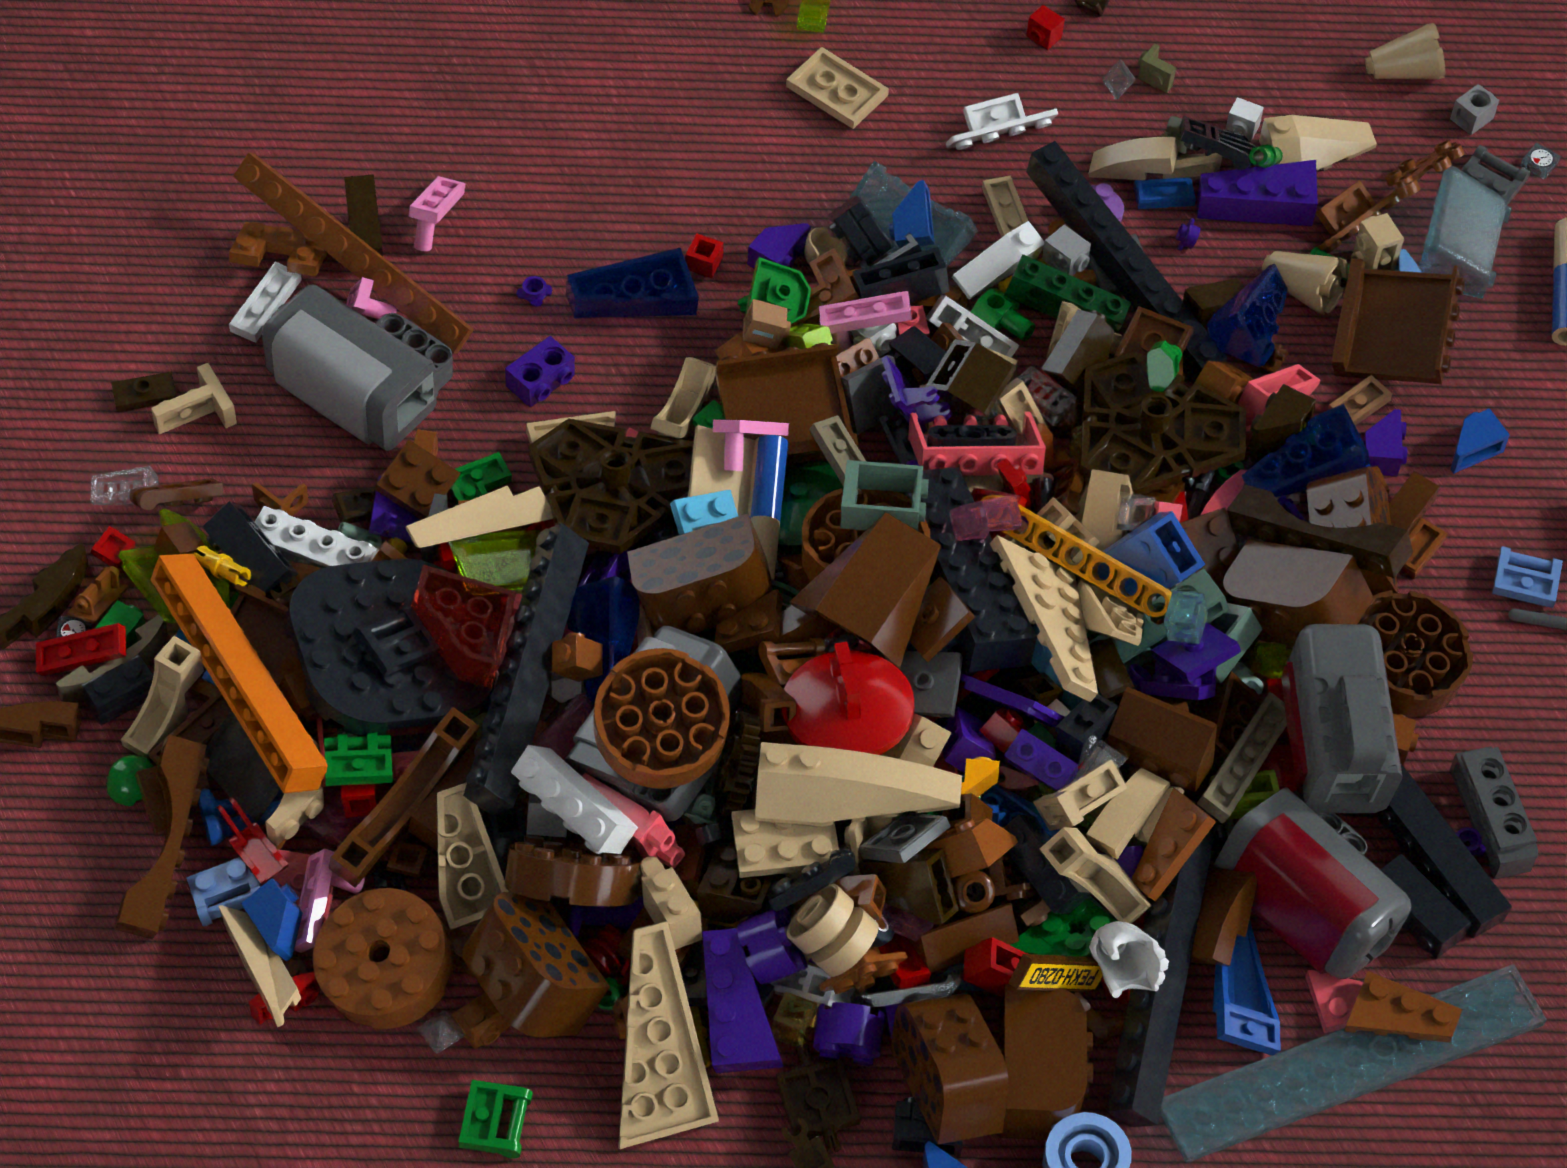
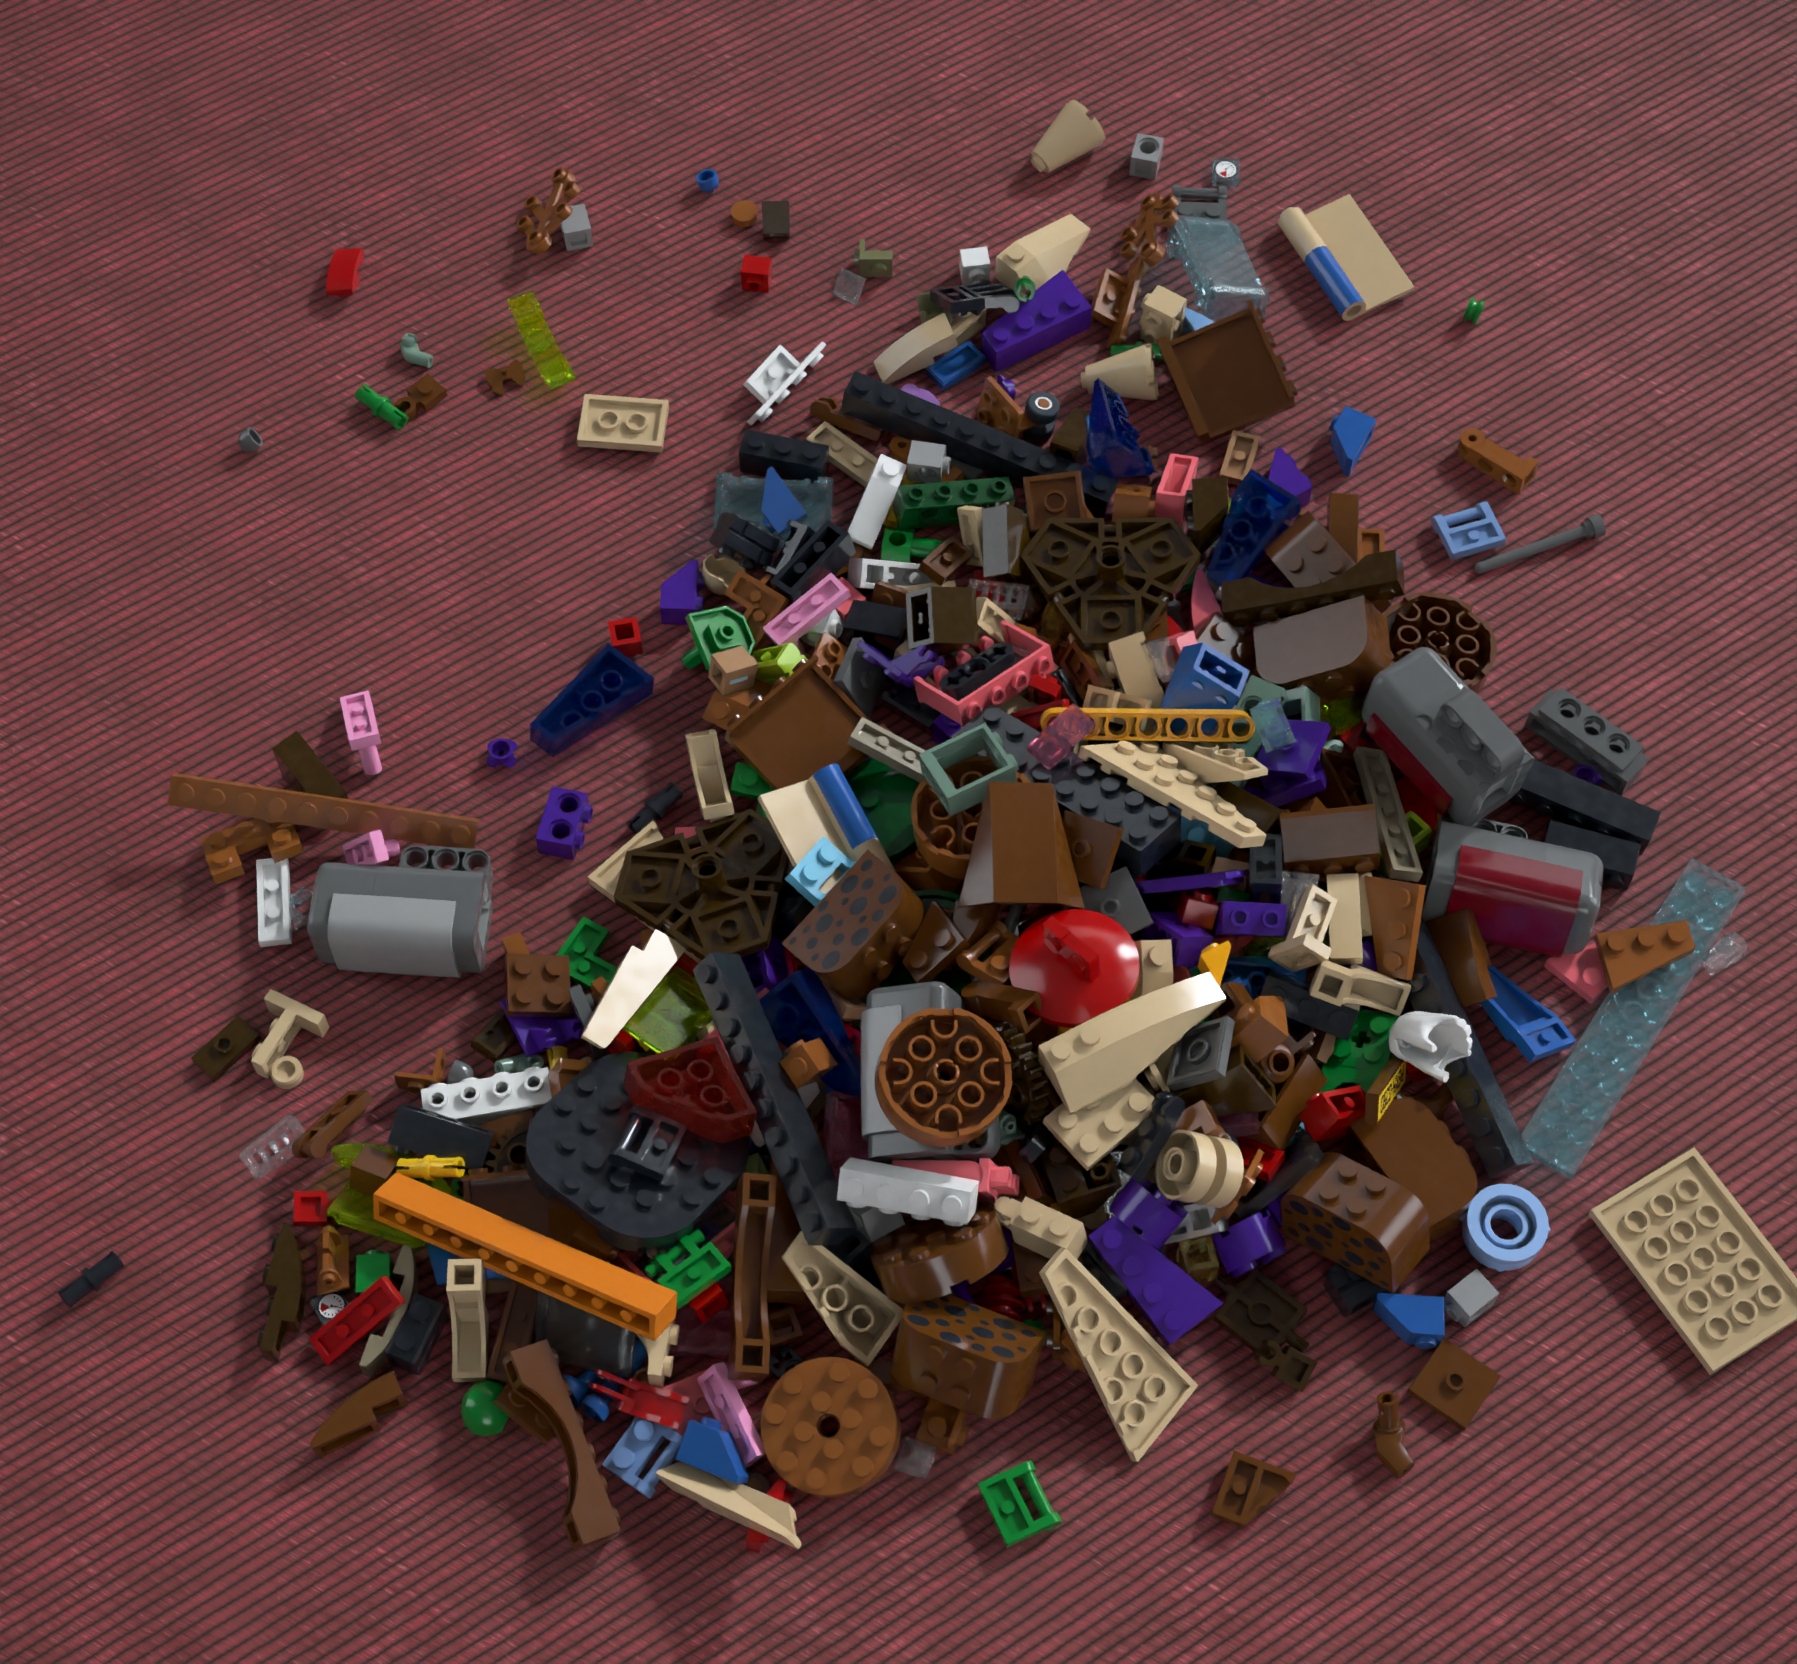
camera: 30 degrees left, 5 degrees up
(176, 437) = (286, 1072): none -> tan tile
(308, 512) = (459, 1071): none -> dark grey hinge
(625, 402) = (655, 808): none -> black pin
(734, 437) = (796, 779): bright pink piece -> none
(951, 184) = (788, 456): none -> black brick
(1017, 167) = (830, 411): none -> reddish brown hinge
(1022, 340) = (946, 560): none -> reddish brown plate
(1162, 365) = (1088, 519): green piece -> none
(1194, 270) = (1003, 414): none -> dark orange plate
(1482, 1062) = (1725, 953): none -> clear cone

